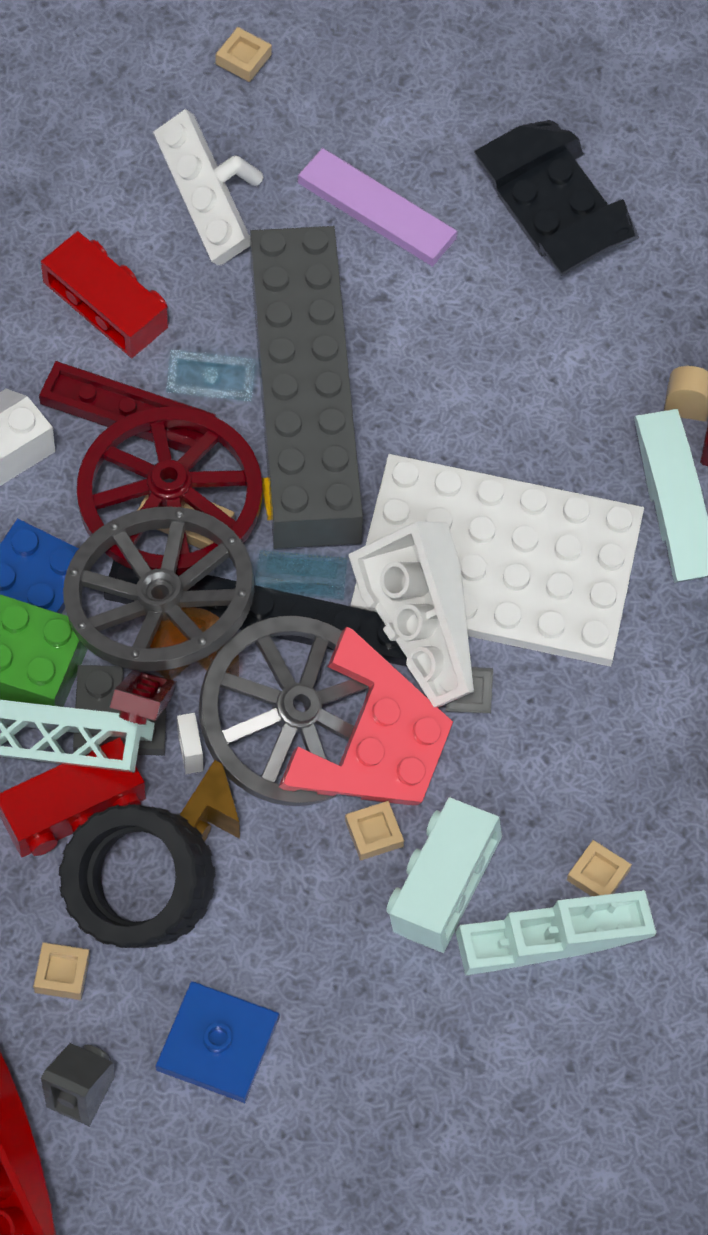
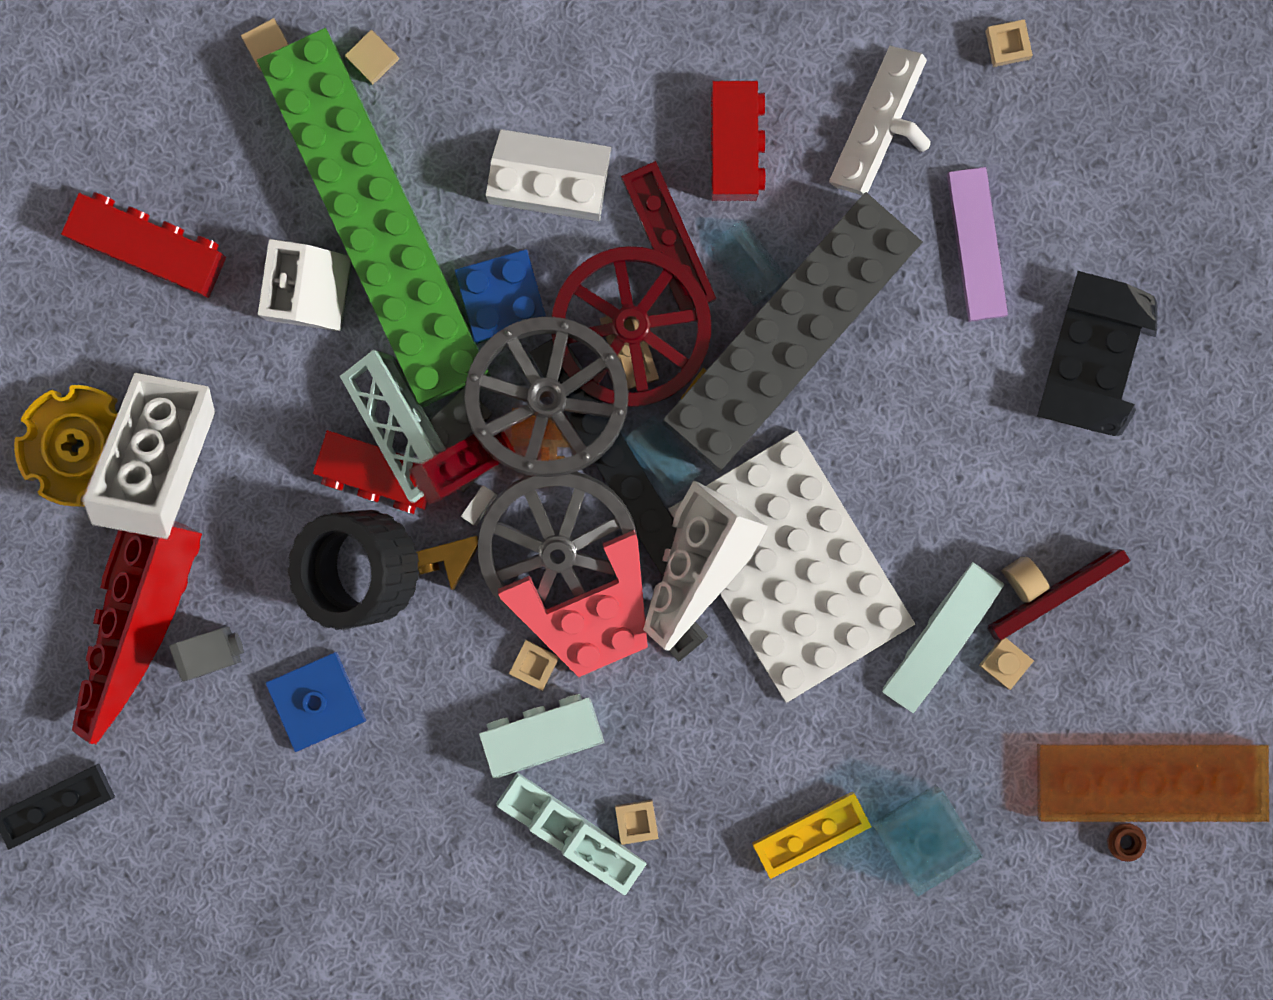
camera: 45 degrees right, 25 degrees up
(61, 971) = (267, 572): tan plate -> none

